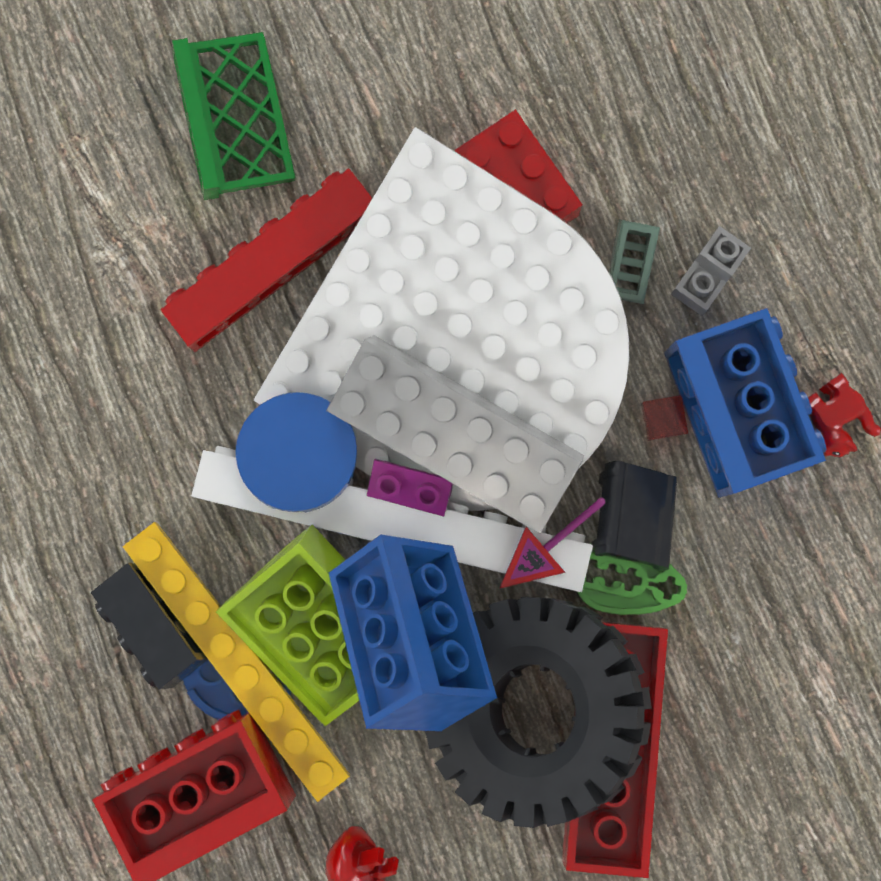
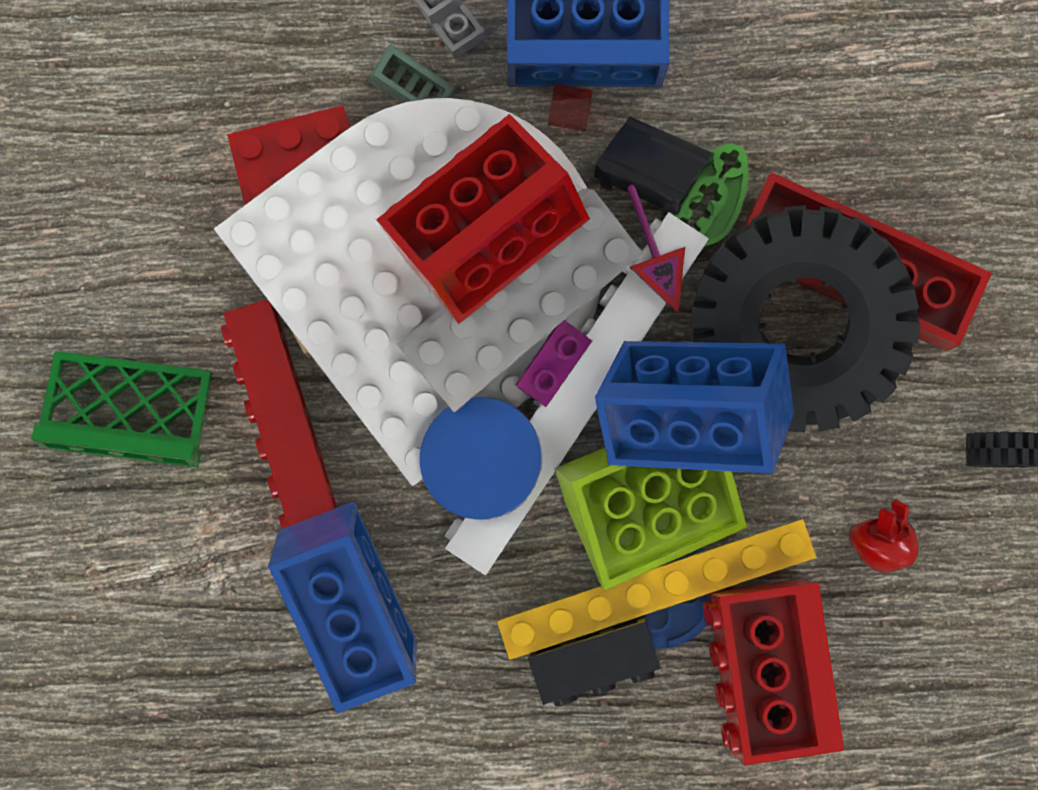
camera: 70 degrees left, 0 degrees up
(112, 376) = (344, 607): none -> blue brick
(510, 369) = (484, 217): none -> red brick

